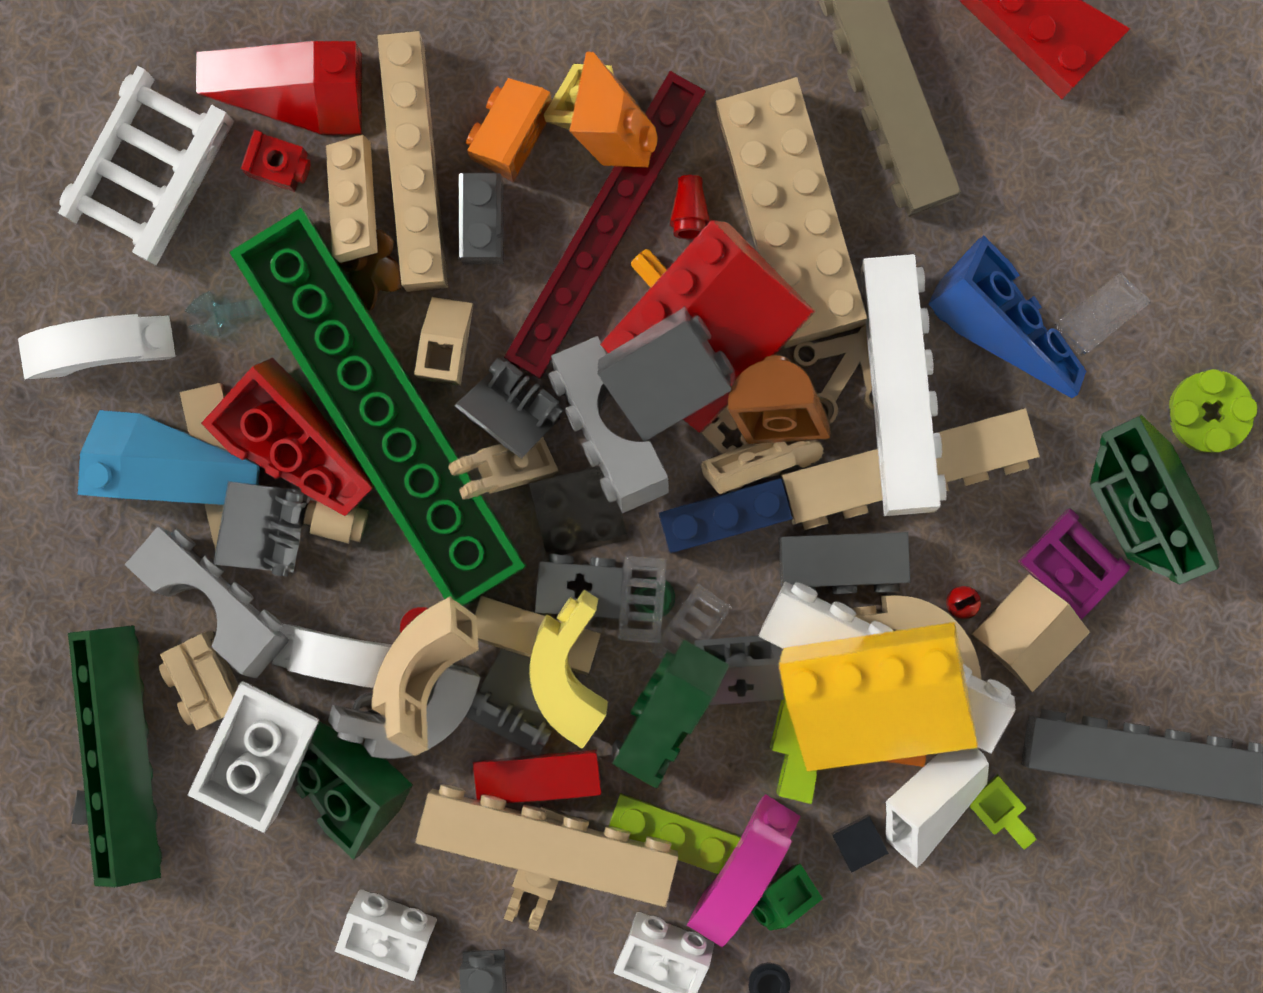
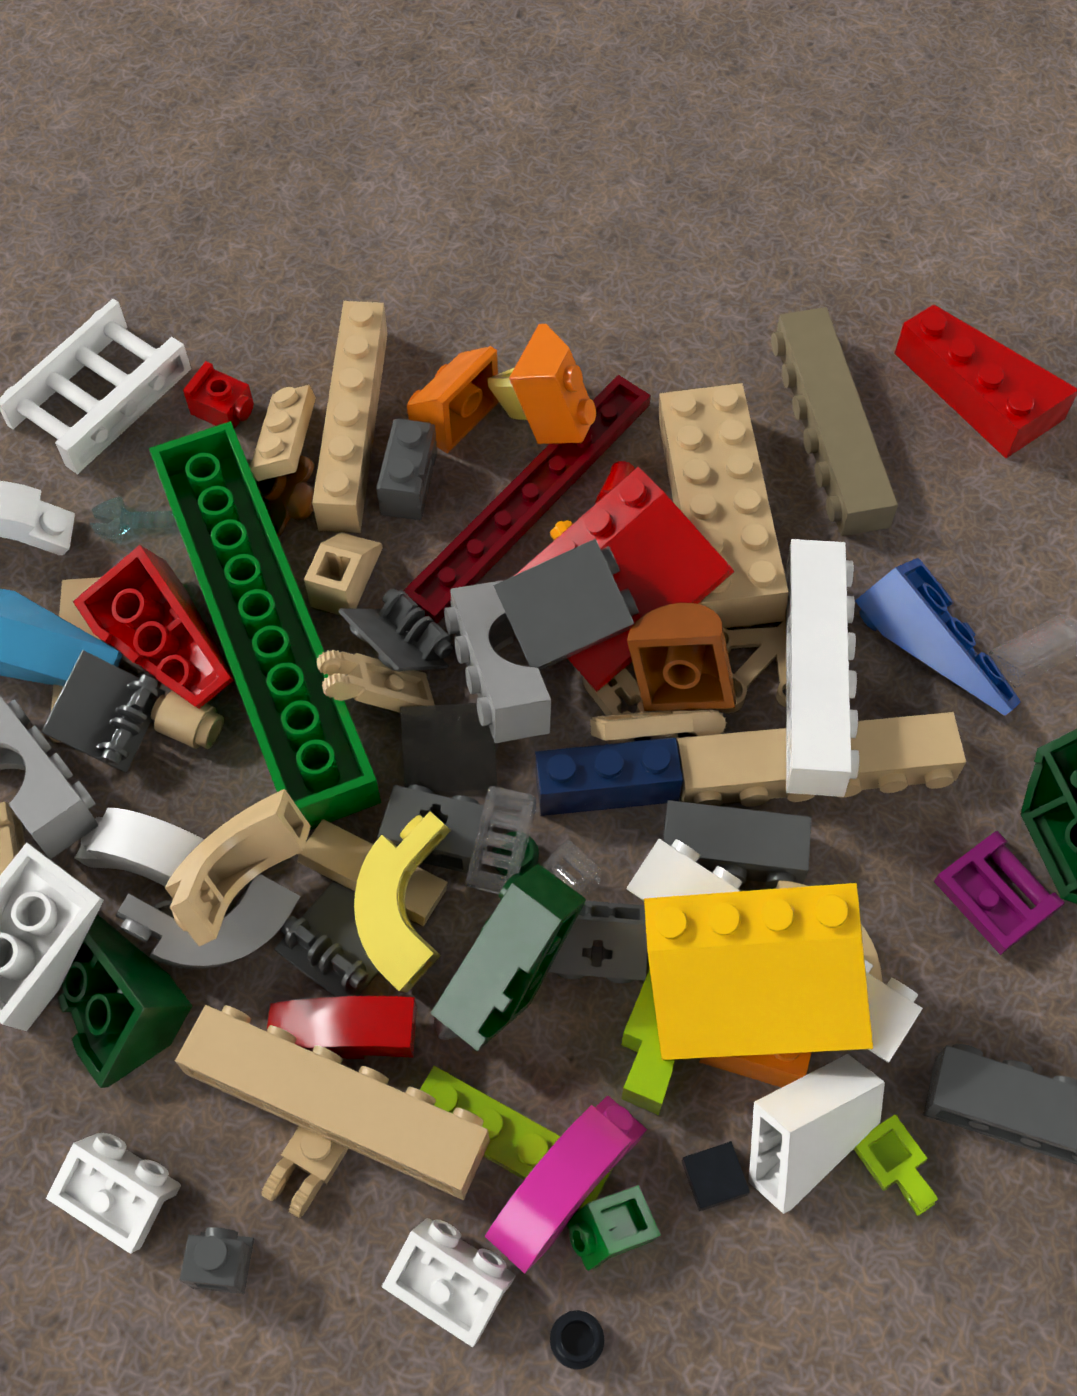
camera: 10 degrees right, 25 degrees down
(293, 83) = (261, 339): red wedge -> none
(960, 594) = (876, 920): red hinge -> none
(1031, 632) = (948, 960): tan slope -> none

